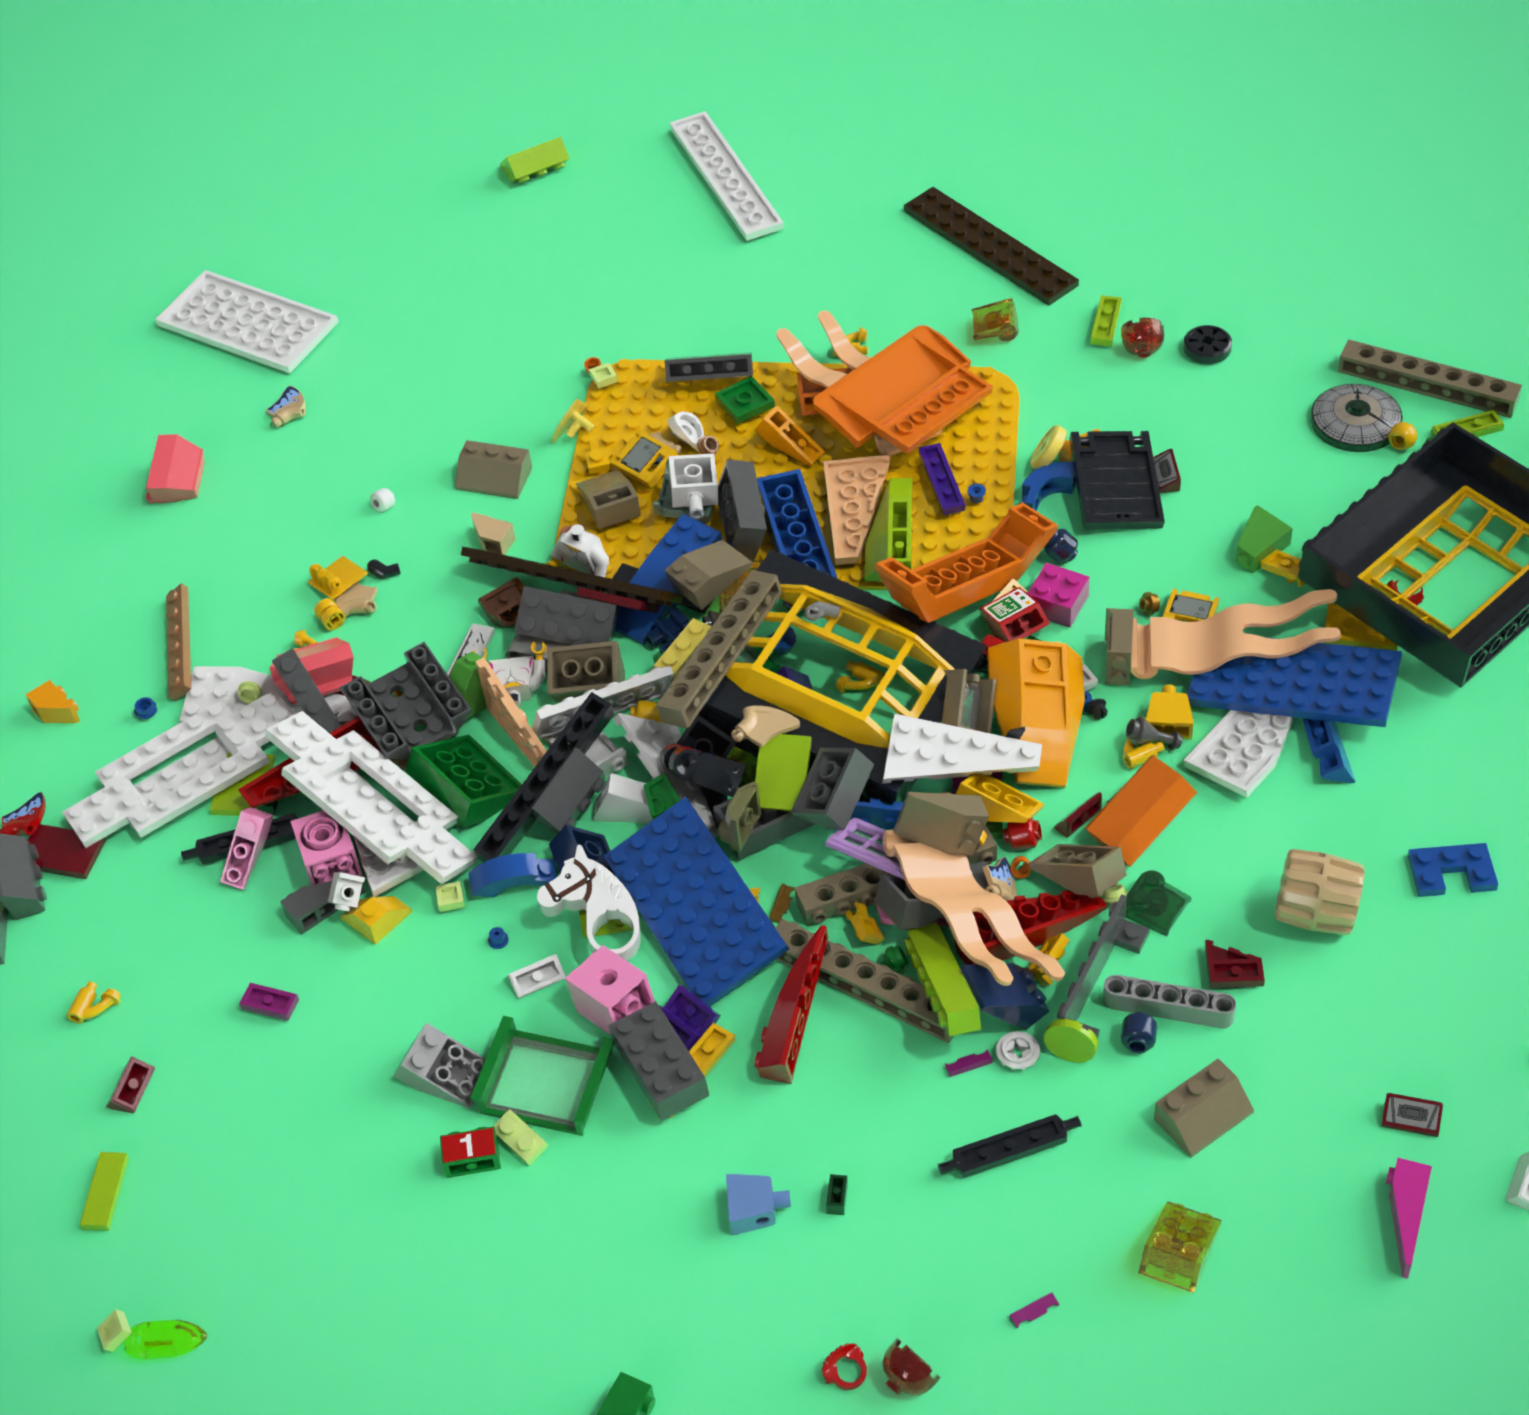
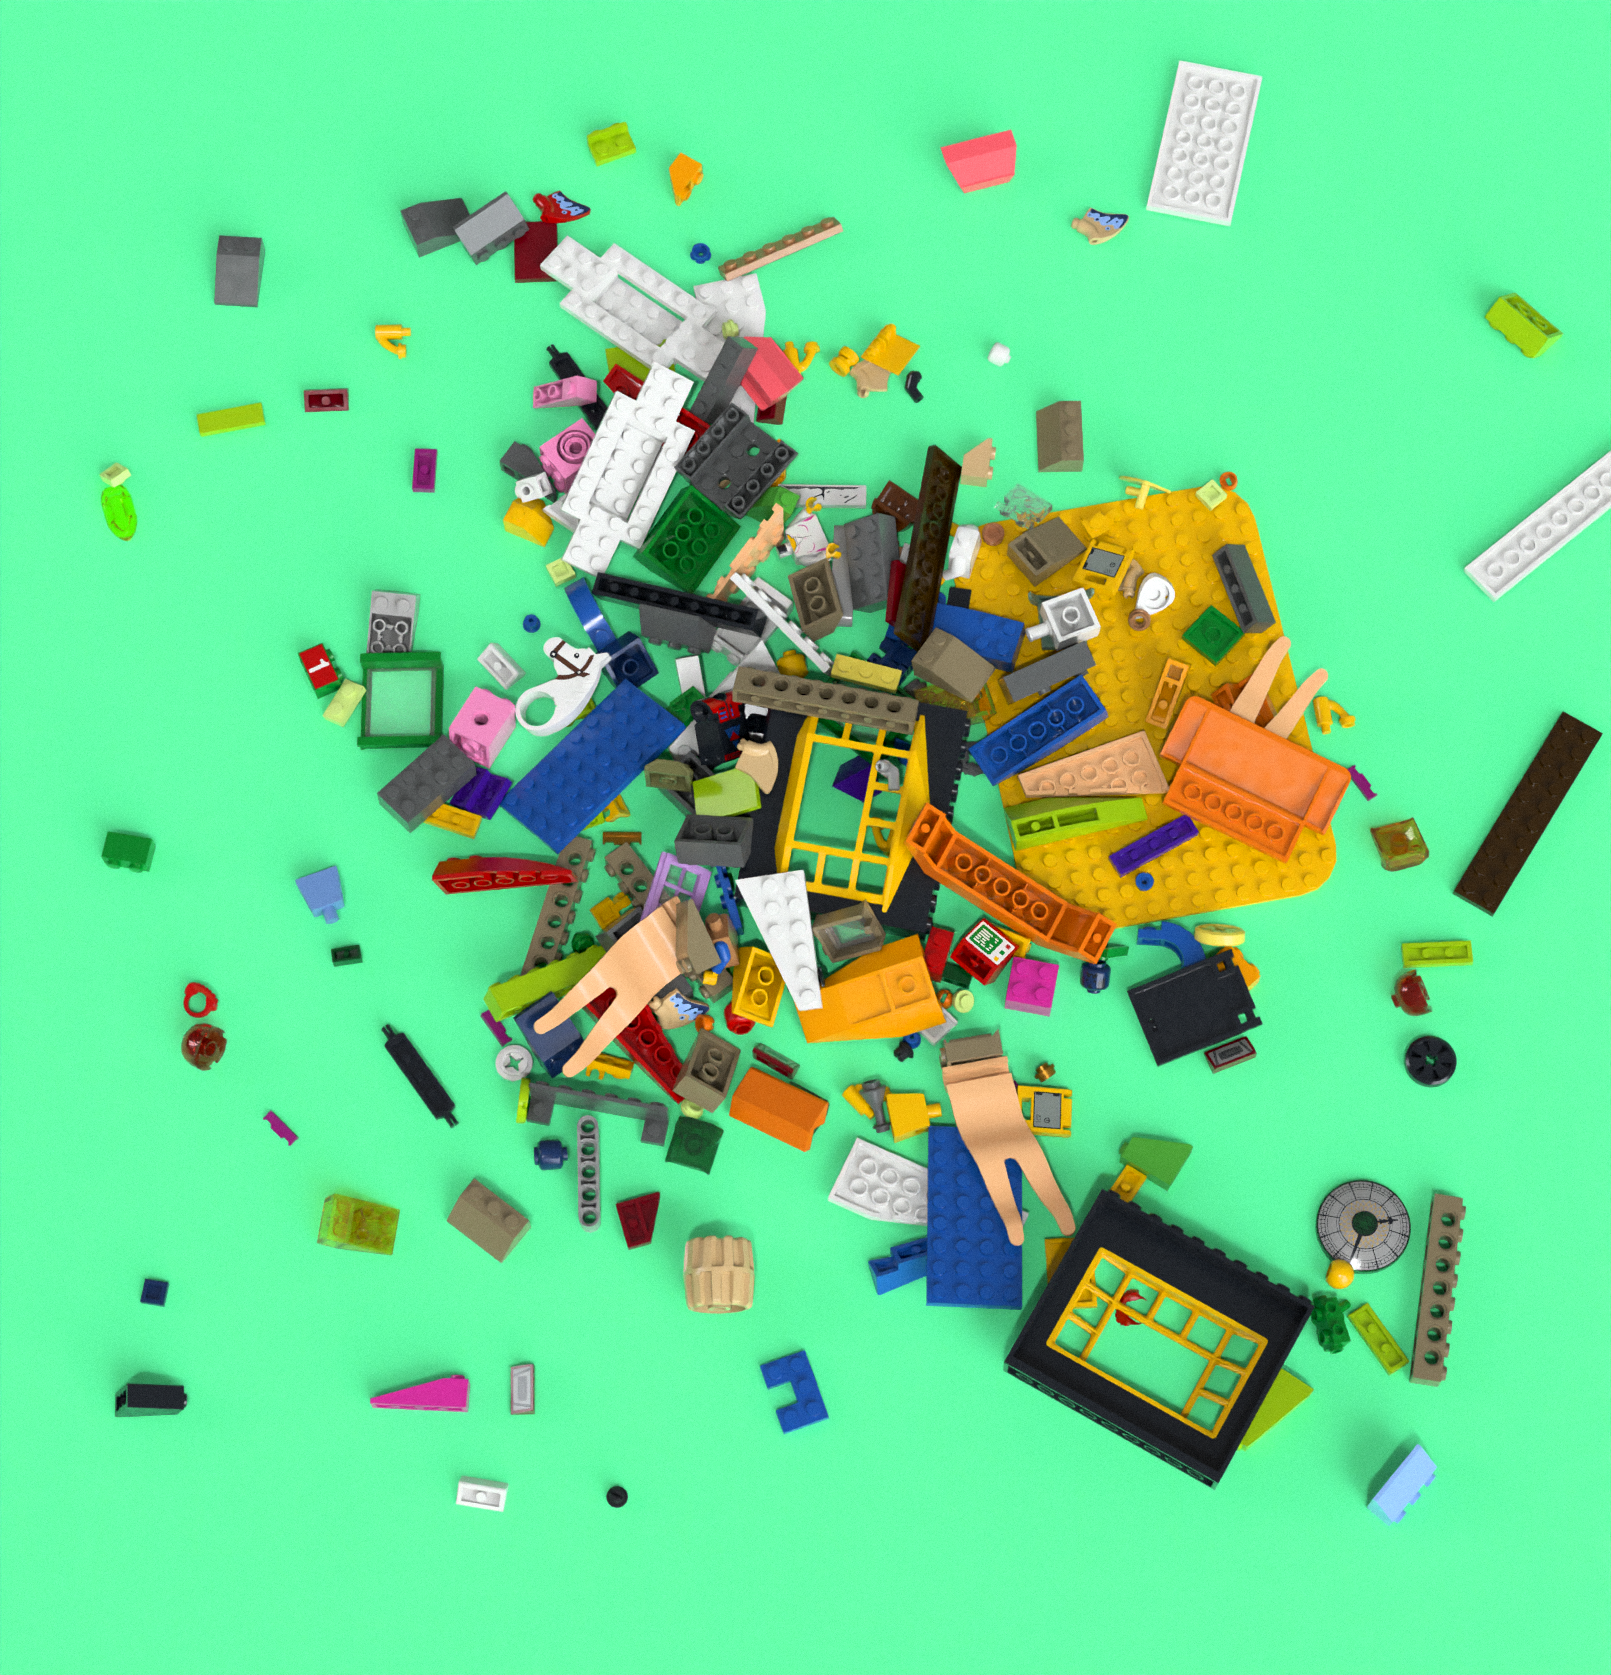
camera: 70 degrees right, 20 degrees up
(552, 509) = (1027, 503): none -> clear plate

